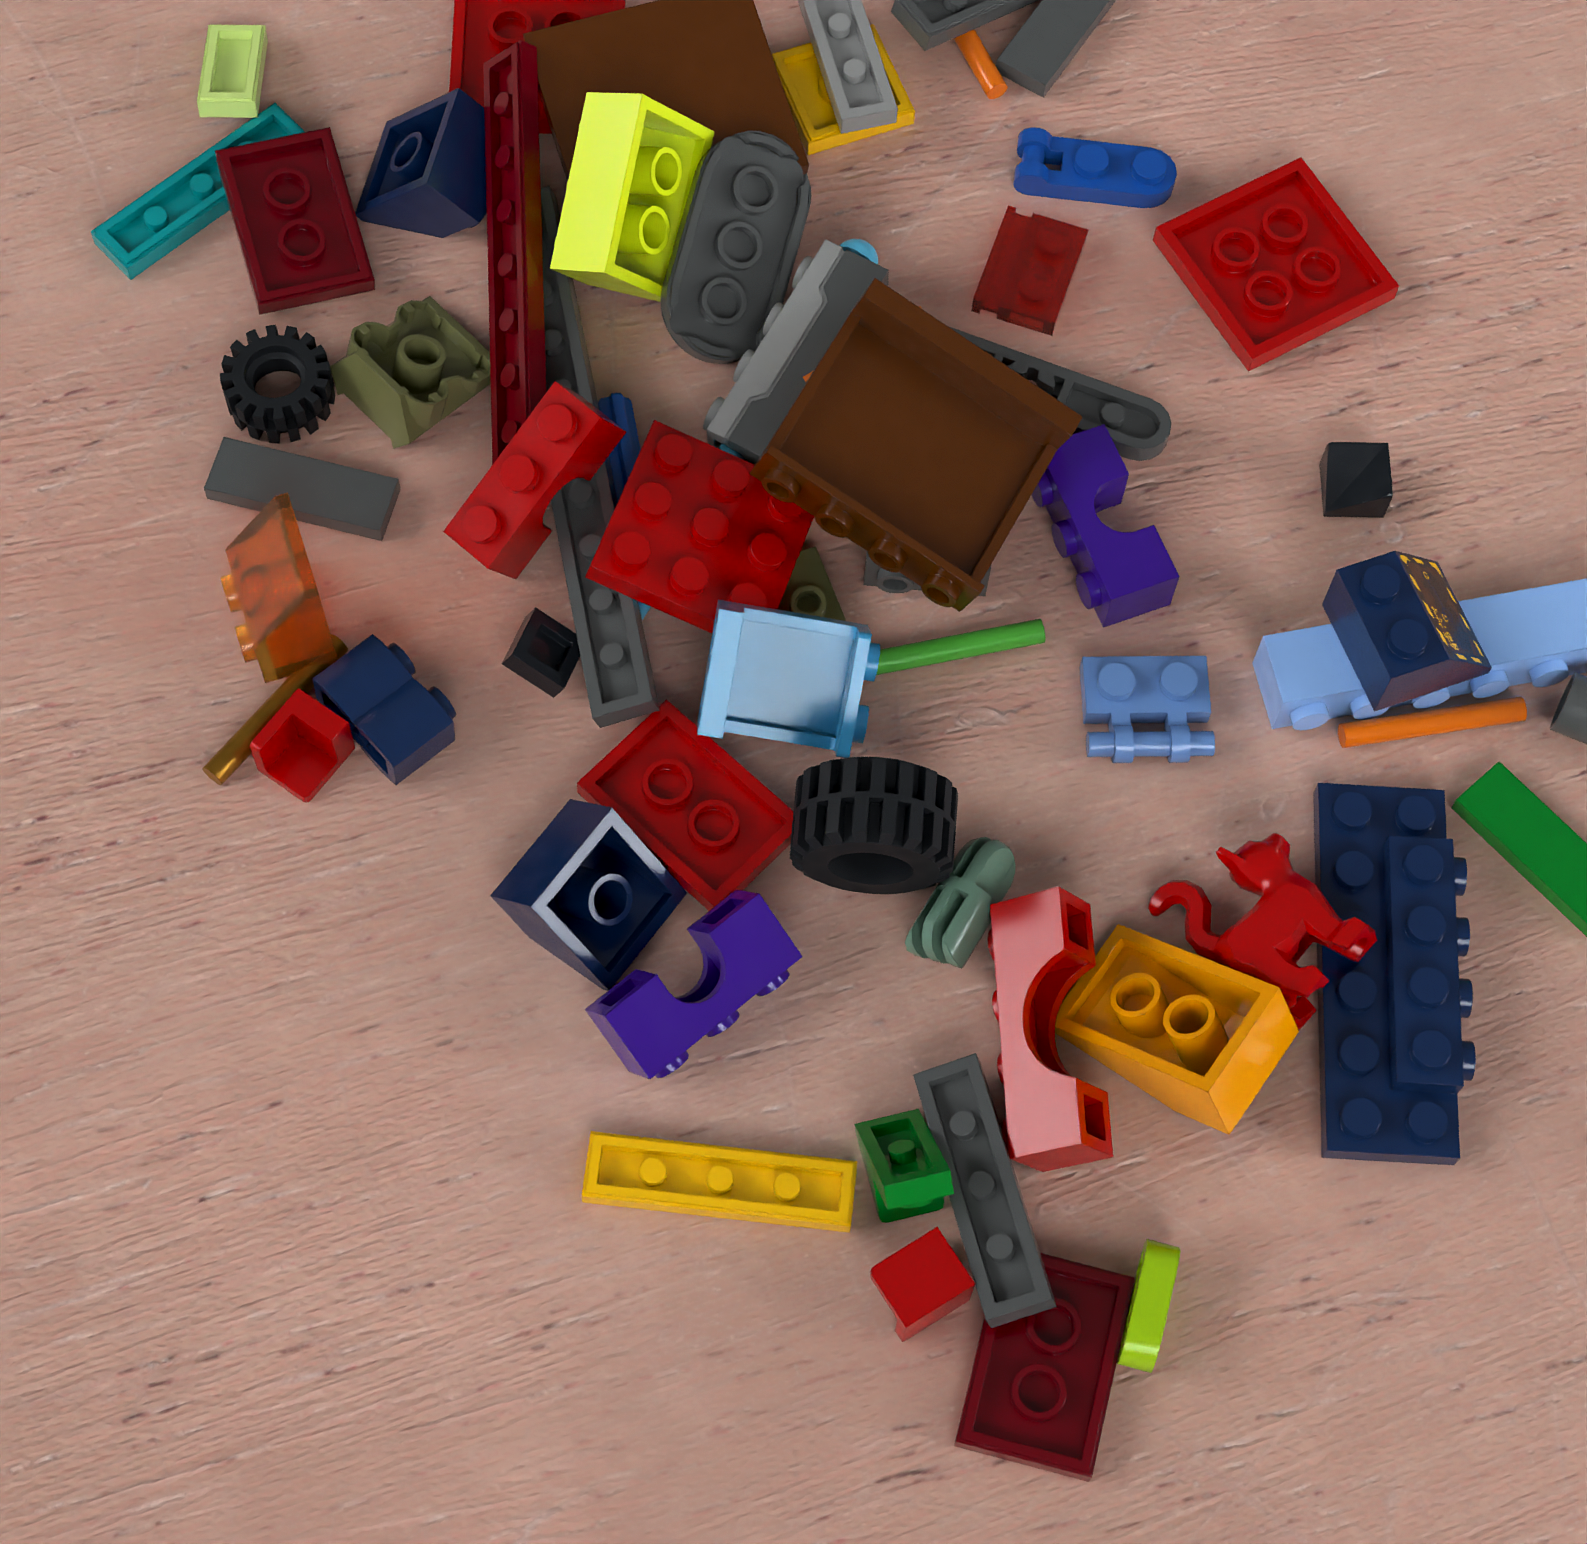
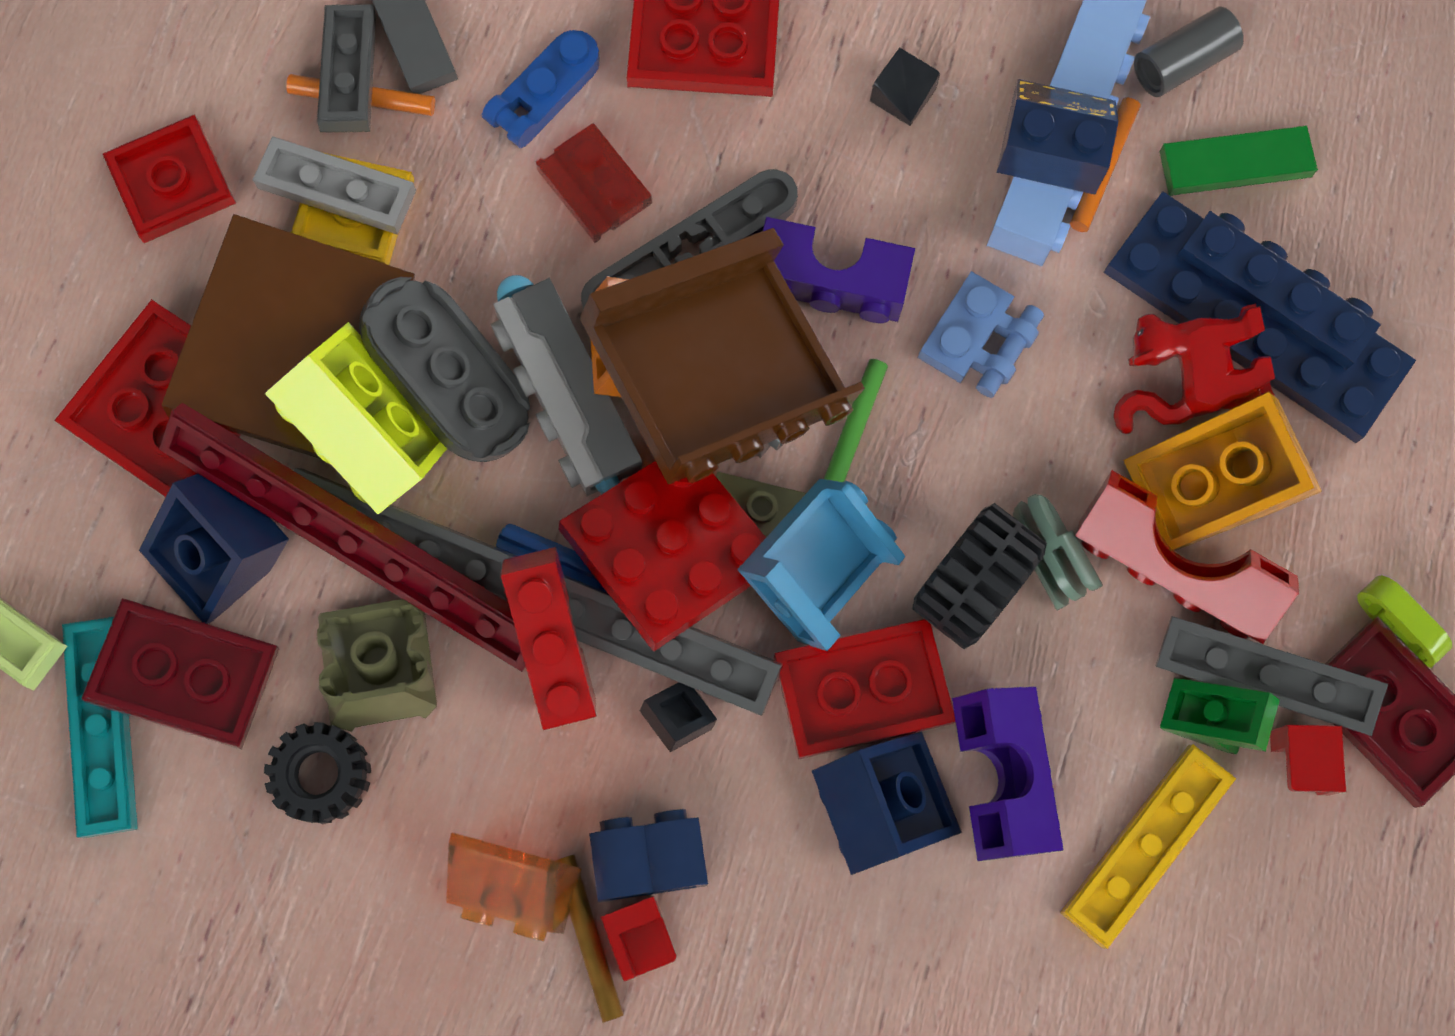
camera: 55 degrees left, 10 degrees up
(317, 489) = (417, 808): dark grey tile -> none

